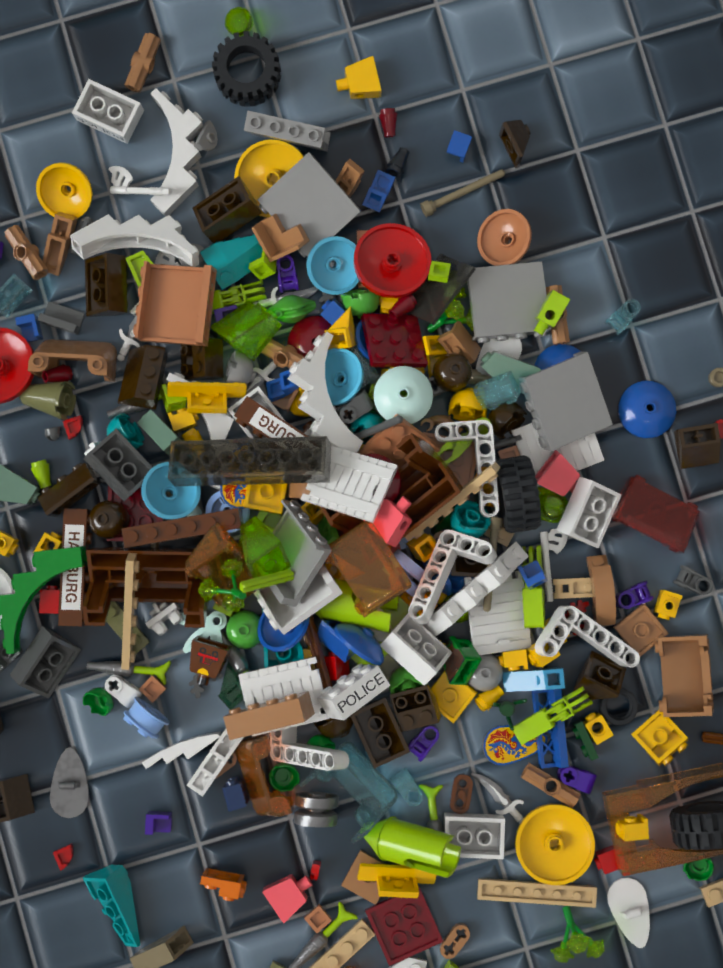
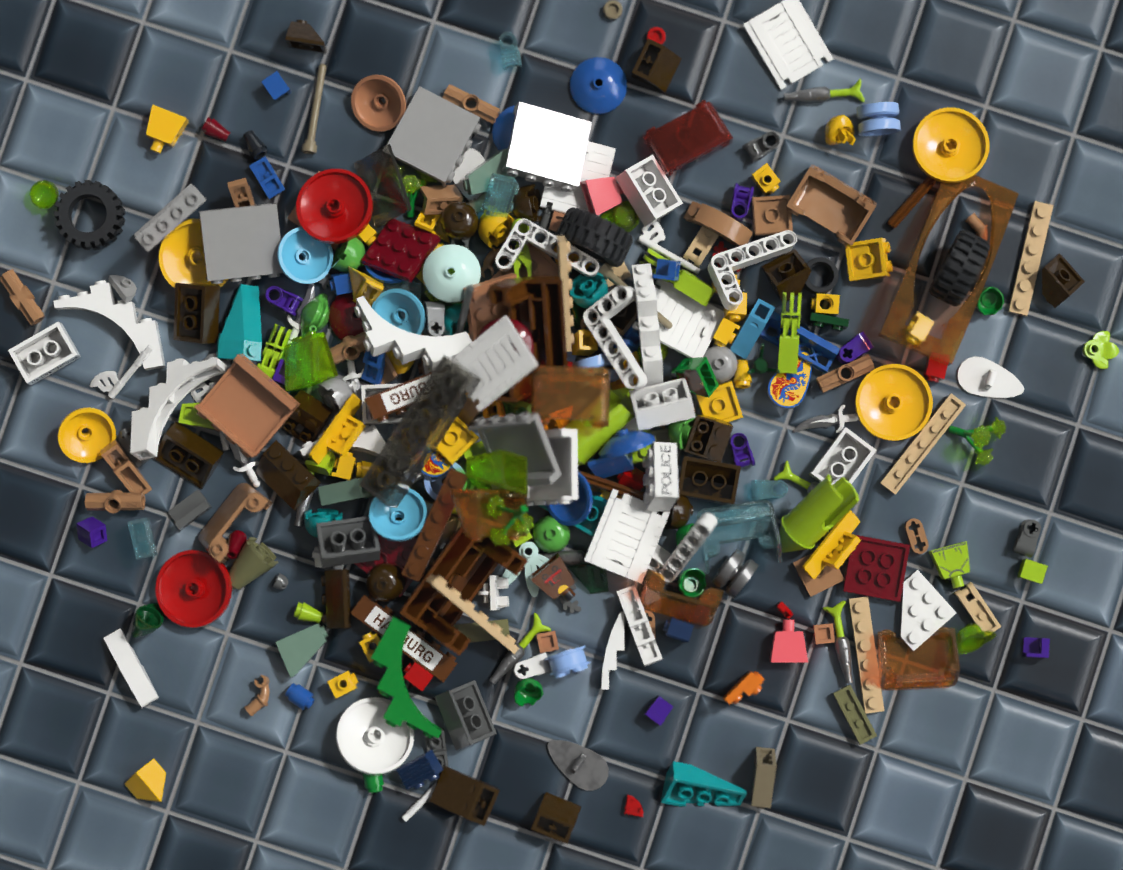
camera: 65 degrees left, 0 degrees up
(30, 327) = (179, 541): blue panel -> none
(73, 426) = (286, 561): red tile -> none
(263, 267) = (265, 313): lime panel -> none
(266, 580) = (525, 483): lime axle -> none
(269, 715) = (634, 556): medium nougat wedge -> none
(276, 240) = (252, 288): medium nougat panel -> none
(392, 520) = (547, 349): coral torso -> none
(402, 306) = (377, 223): dark red cone -> none
(439, 271) = (370, 174): lime plate -> none
(463, 793) = (803, 449): reddish brown plate -> none
(556, 305) = (462, 100): lime torso -> none

